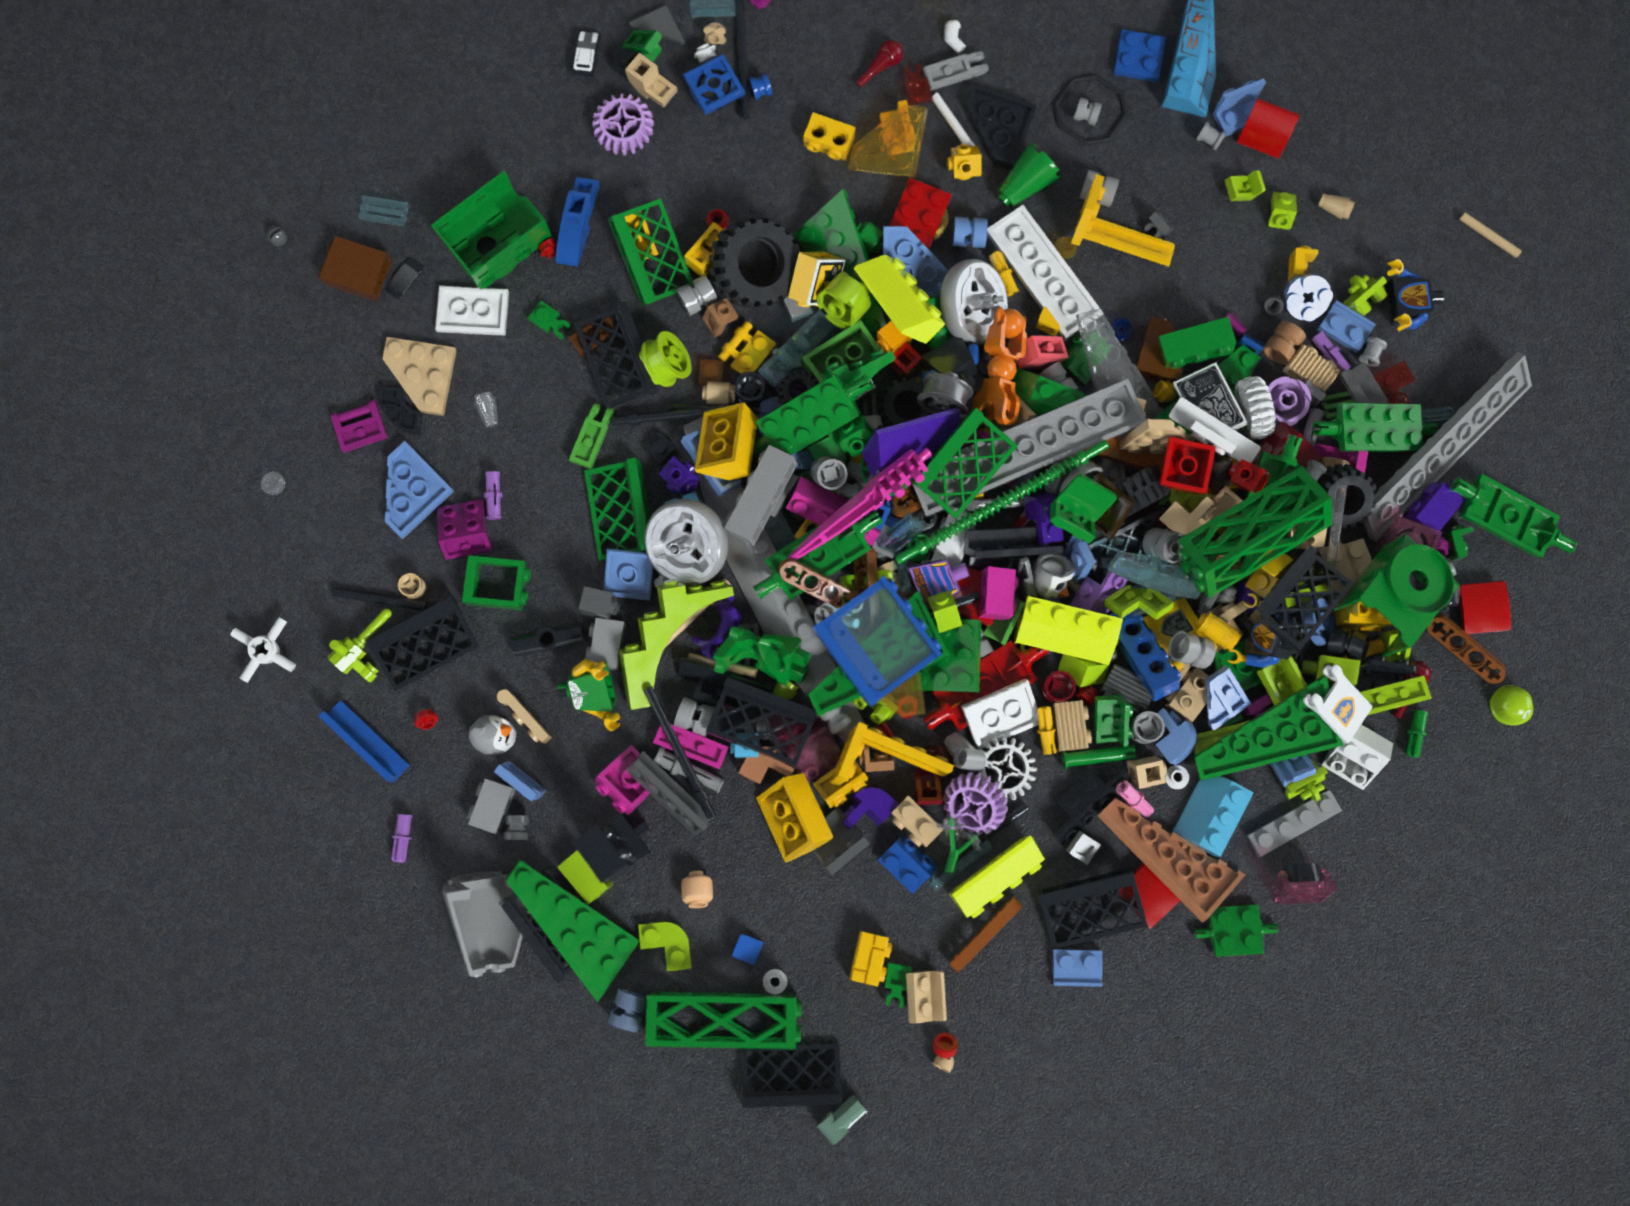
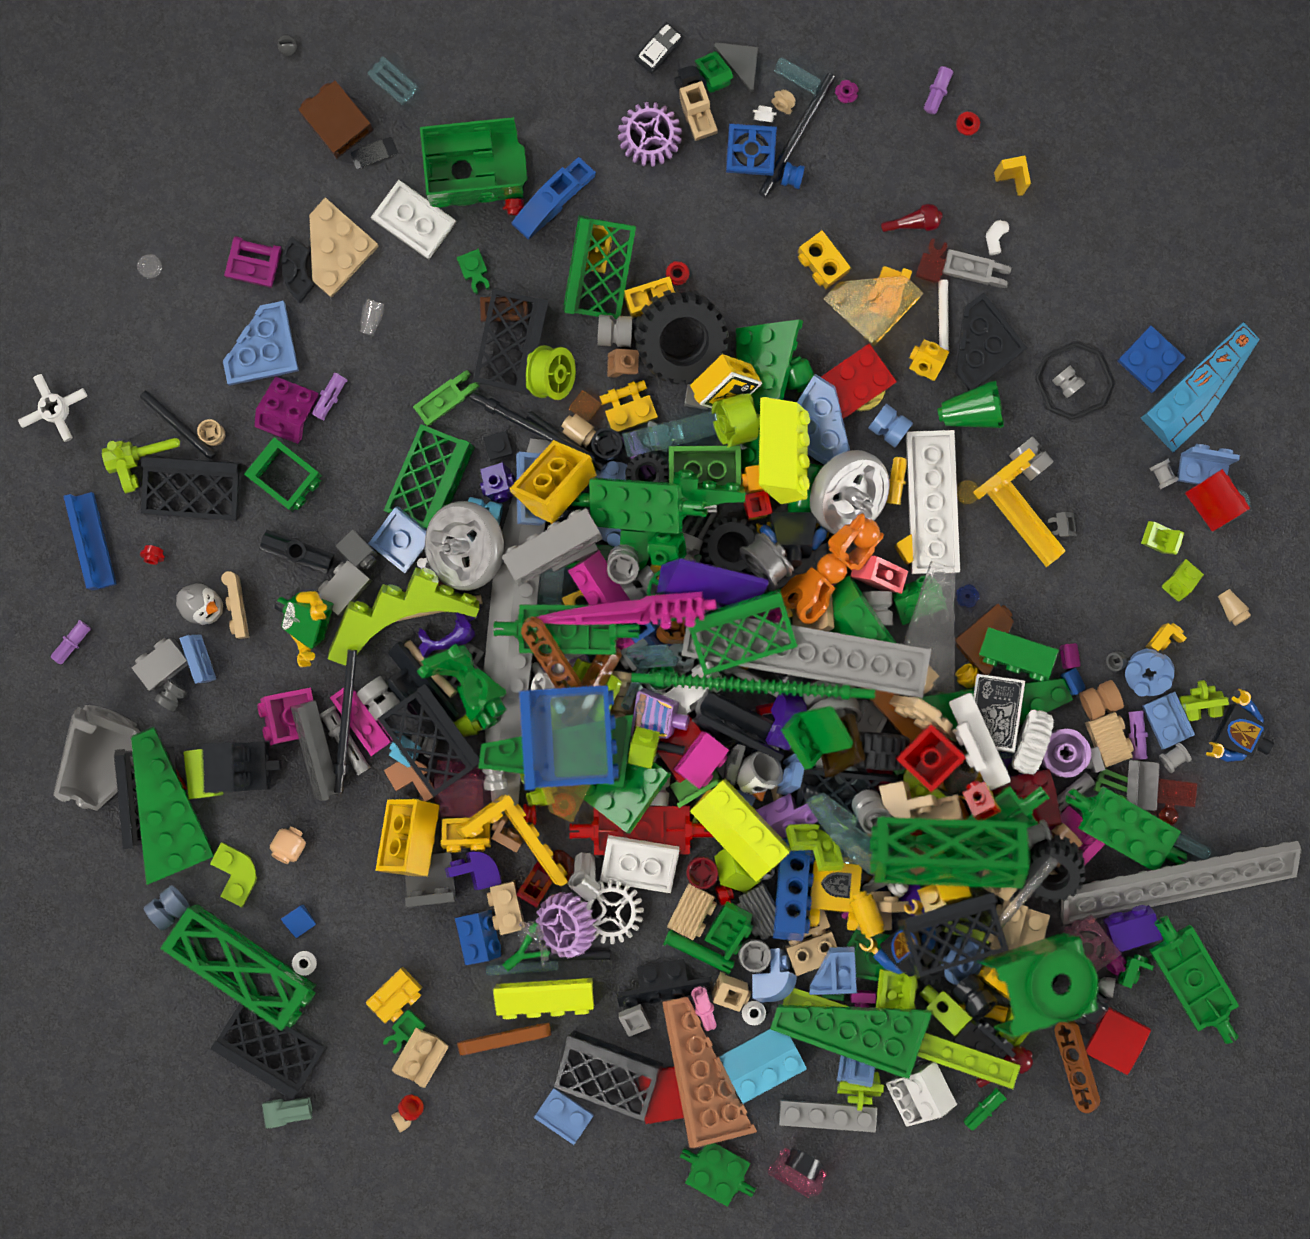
camera: 30 degrees right, 5 degrees up
(1046, 730) = (668, 902): yellow axle -> none
(1192, 649) = (833, 916): light grey wheel -> none
(1342, 706) = (929, 1047): white flag -> none
(1511, 705) = (1084, 1138): lime helmet -> none

